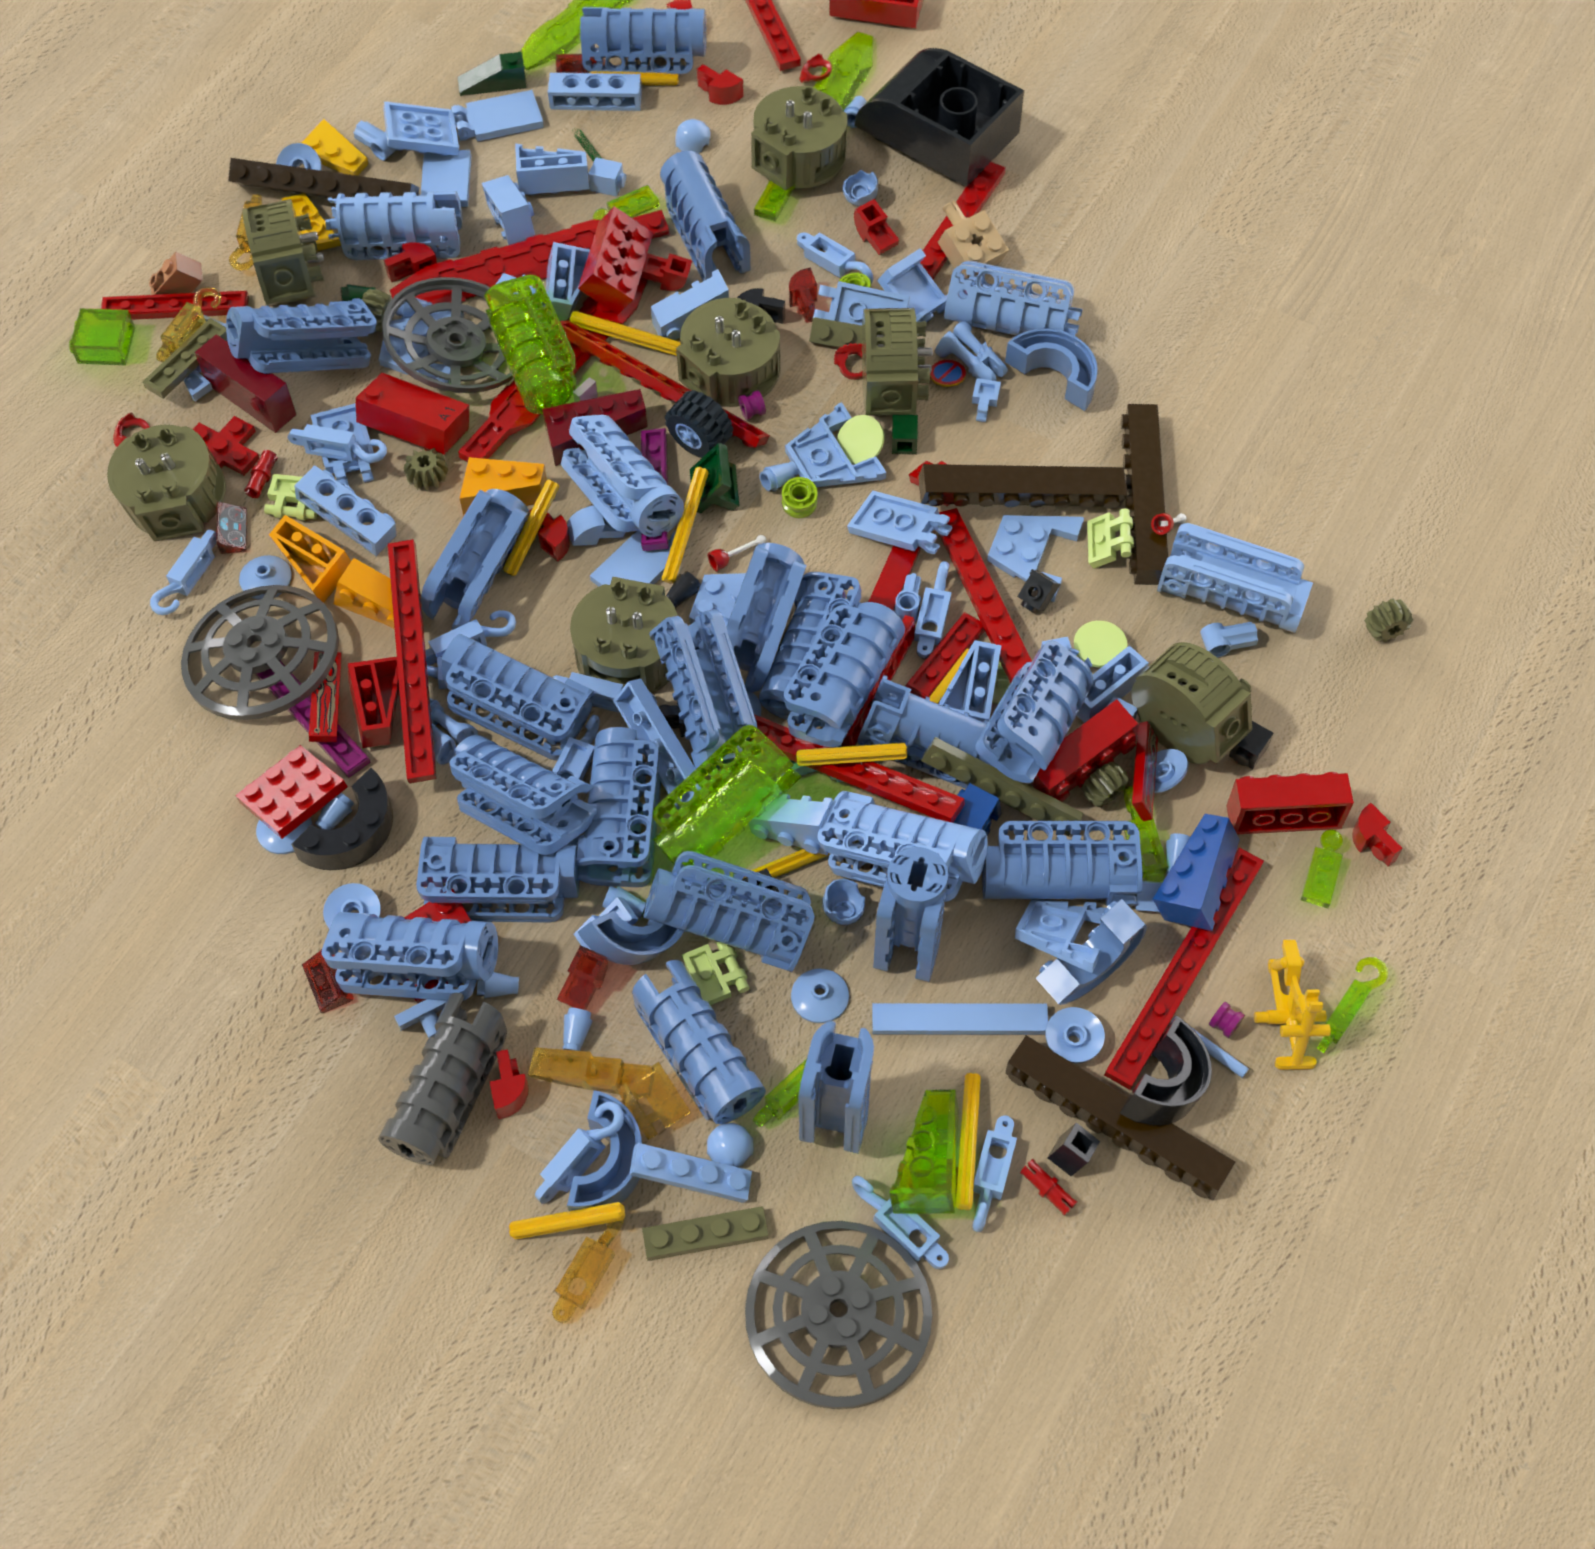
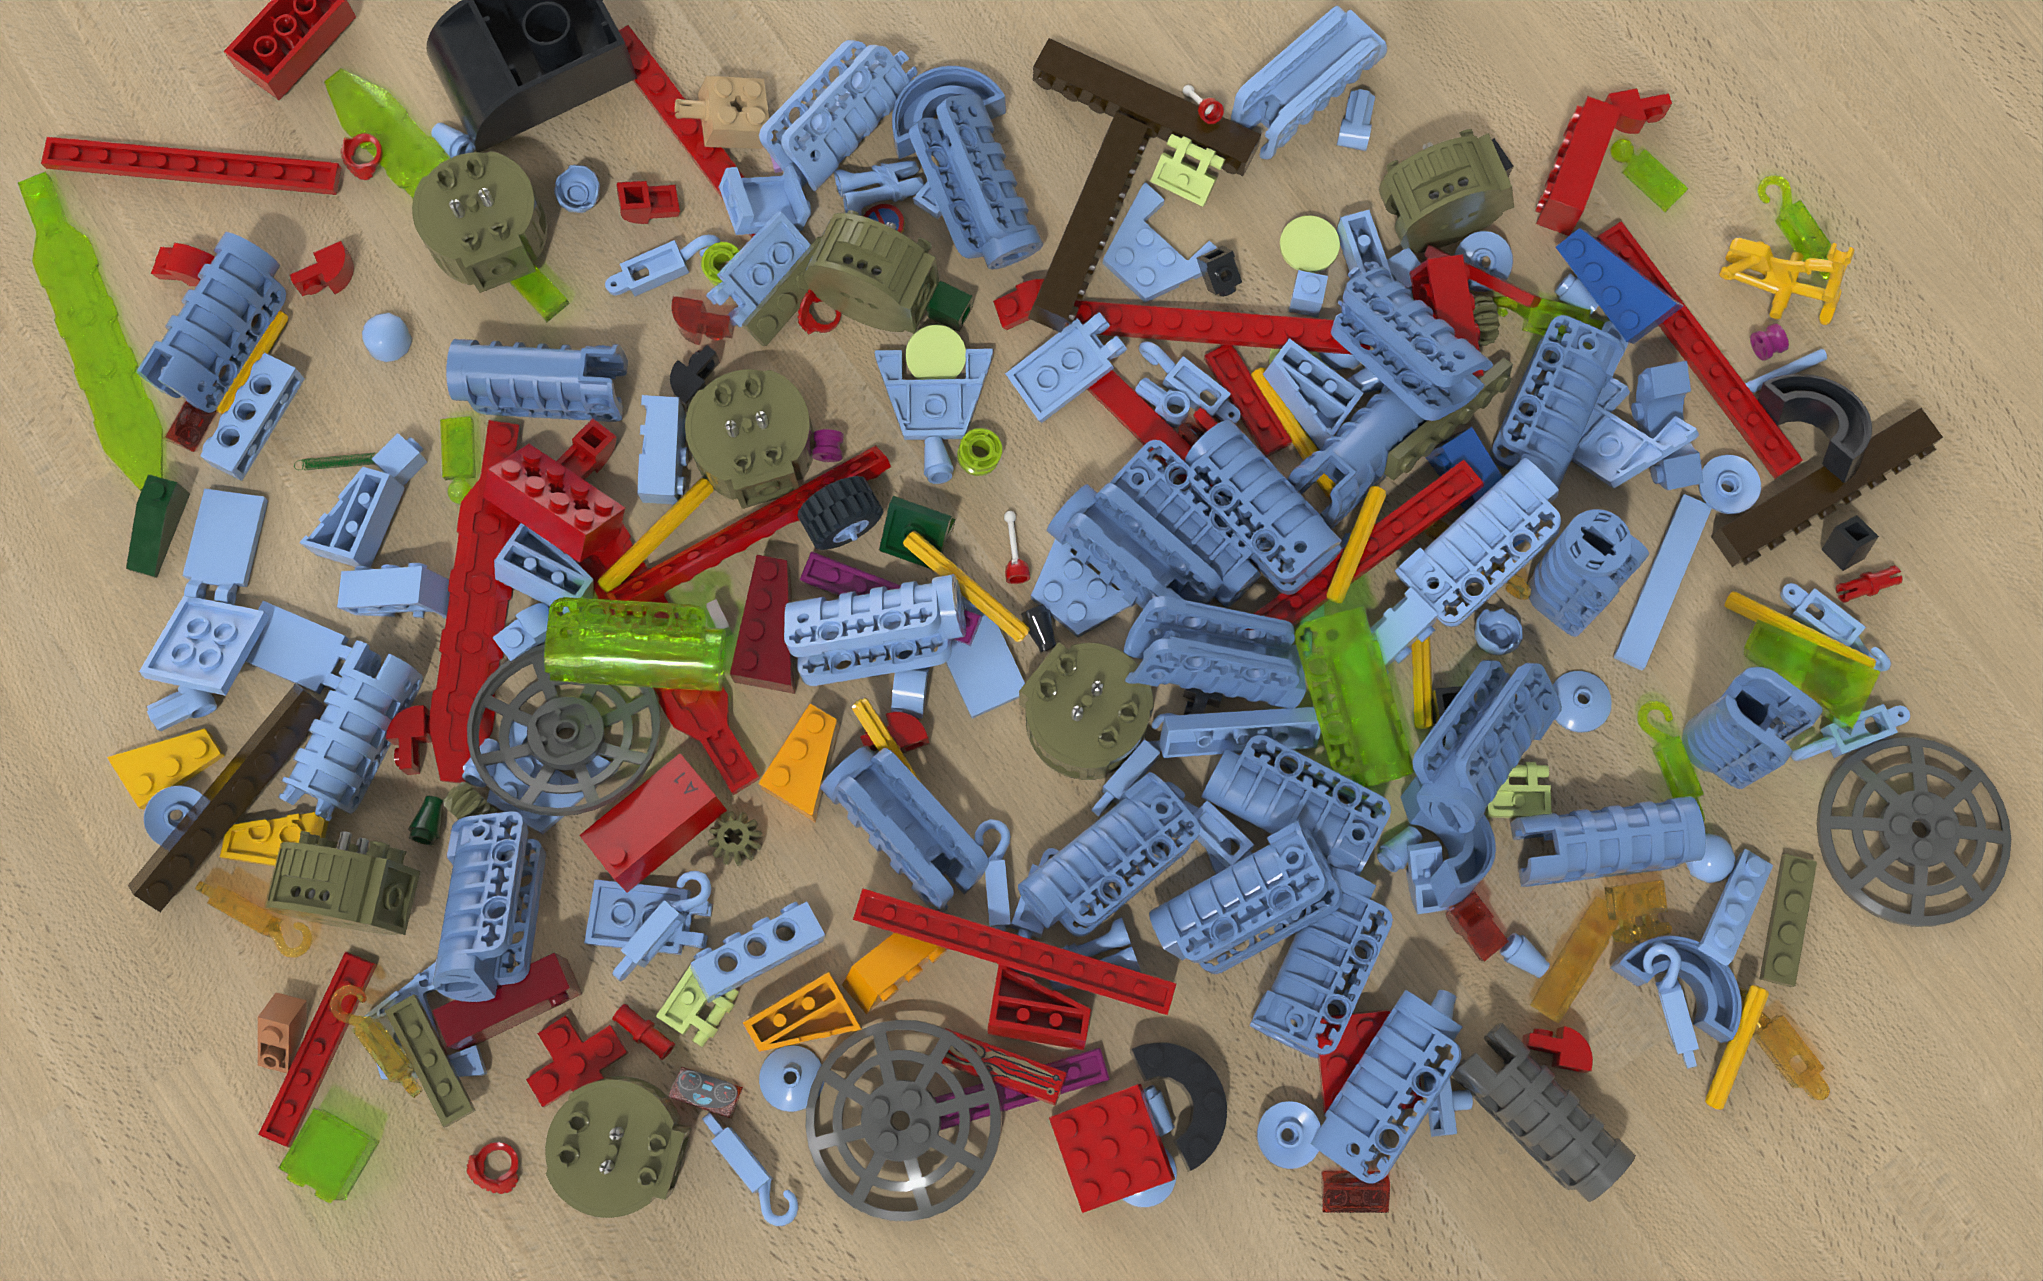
camera: 65 degrees left, 15 degrees up
(1007, 401) = (975, 183): none -> medium blue piece

